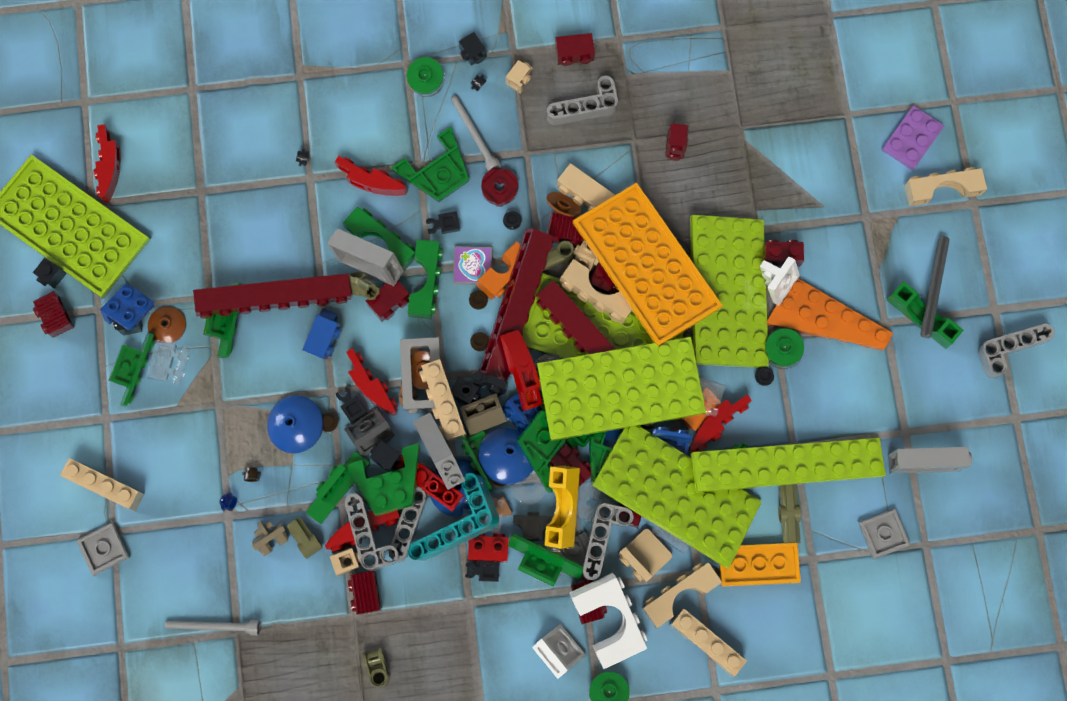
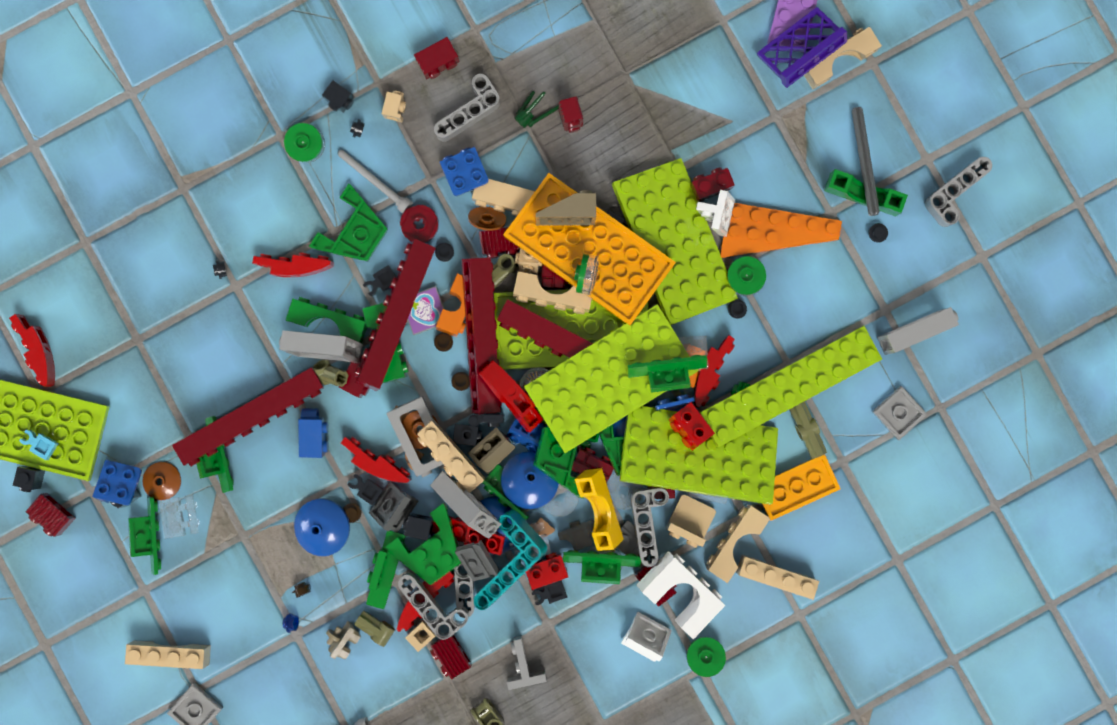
camera: 20 degrees left, 10 degrees up
(74, 247) = (41, 445): none -> medium azure plate
(427, 508) = (477, 561): none -> dark grey plate
(428, 631) = (522, 668): none -> light grey bracket
(444, 256) = (395, 315): none -> dark red brick
(559, 154) = (464, 171): none -> blue bracket
(634, 128) = (524, 116): none -> dark green plant
(636, 281) = (586, 274): none -> piece
(641, 220) = (573, 210): none -> dark tan slope
(677, 401) = (668, 374): none -> green bracket
(679, 462) = (691, 426): none -> red brick
(918, 173) = (814, 54): none -> dark purple fence
(924, 357) = (878, 233): none -> black plate

